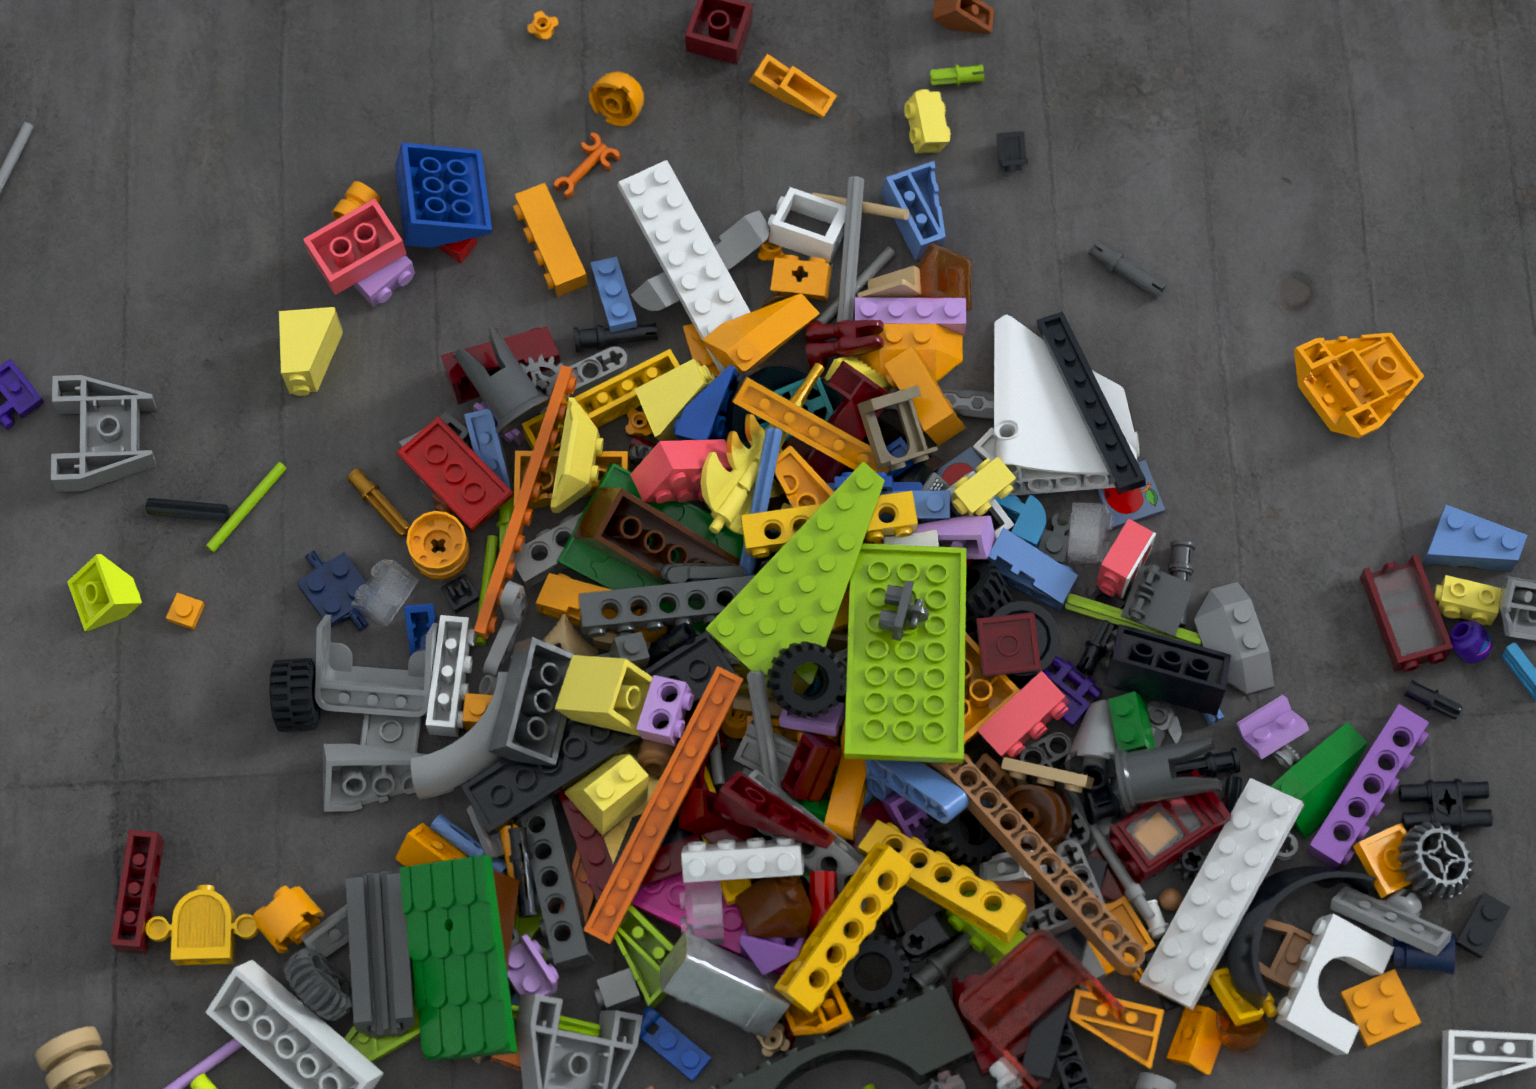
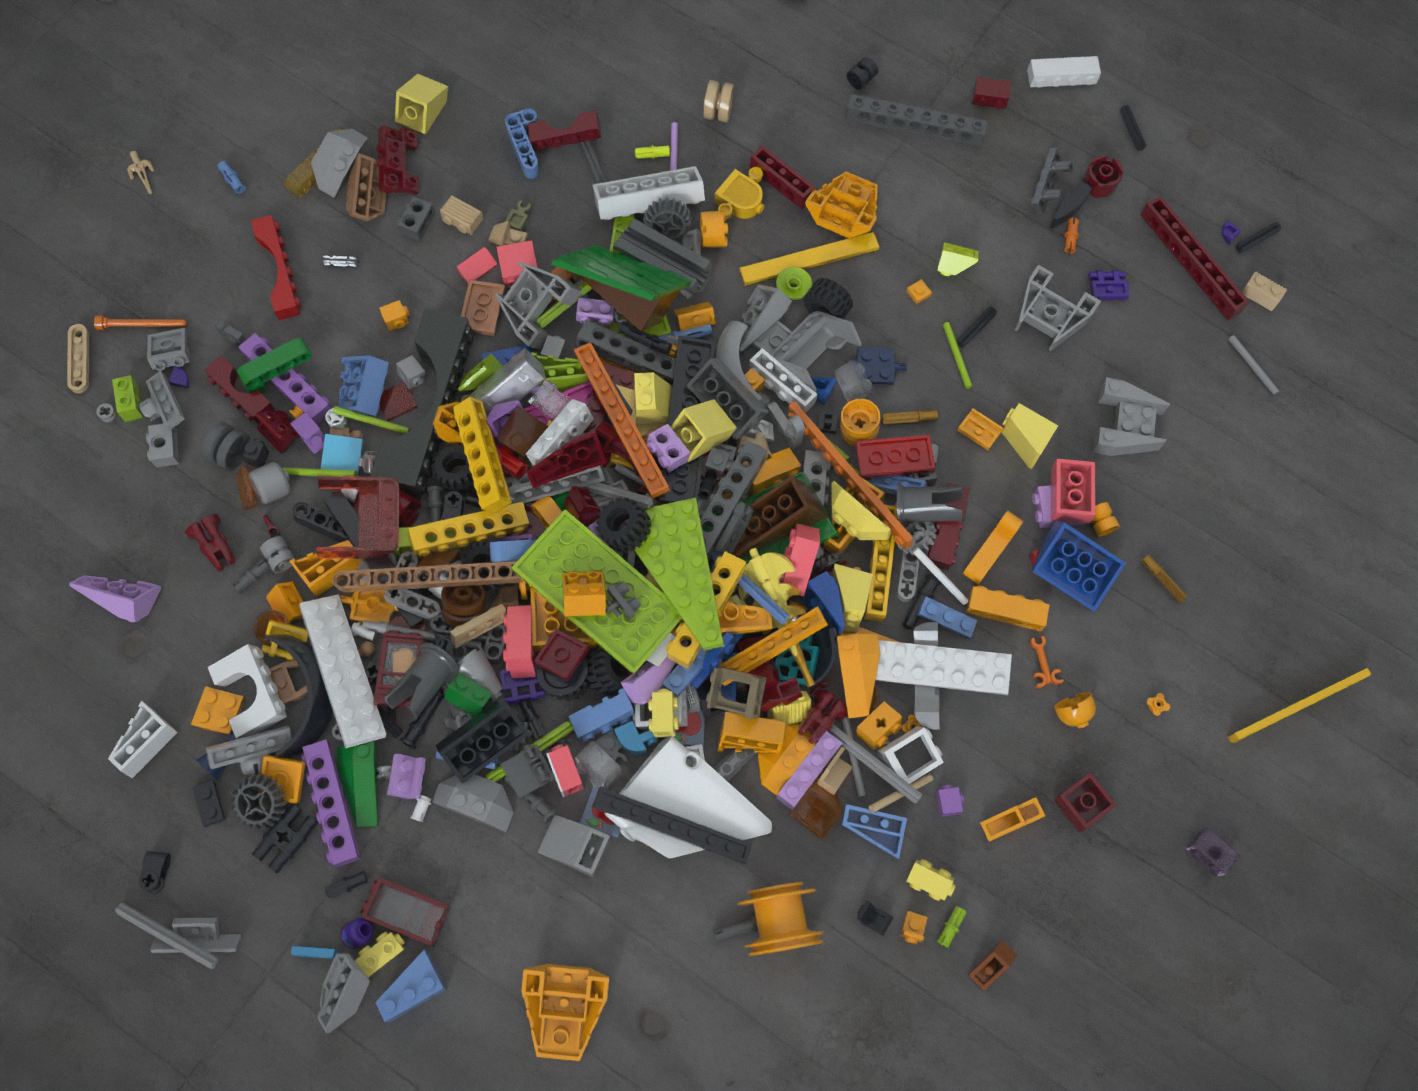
camera: 120 degrees right, 0 degrees up
(118, 781) = (845, 205): none -> light orange wedge
(195, 252) = (1133, 420): none -> light grey wedge
(236, 777) = (810, 258): none -> yellow tile
(286, 753) = (794, 276): none -> lime dish
(335, 413) = (980, 429): none -> light orange plate
(377, 115) = (1157, 571): none -> pearl gold axle
(486, 301) = (993, 547): none -> light orange beam
(571, 327) = (940, 575): none -> white bar
(725, 1047) = (480, 373): none -> lime slope
(826, 159) = (949, 801): none -> medium lavender brick
(927, 654) = (583, 593): none -> light orange slope
(988, 110) = (913, 927): none -> light orange bracket
(1105, 215) = (780, 919): none -> light orange wheel
(1191, 493) = (574, 845): none -> light grey slope
(1290, 687) = (421, 808): none -> white pin

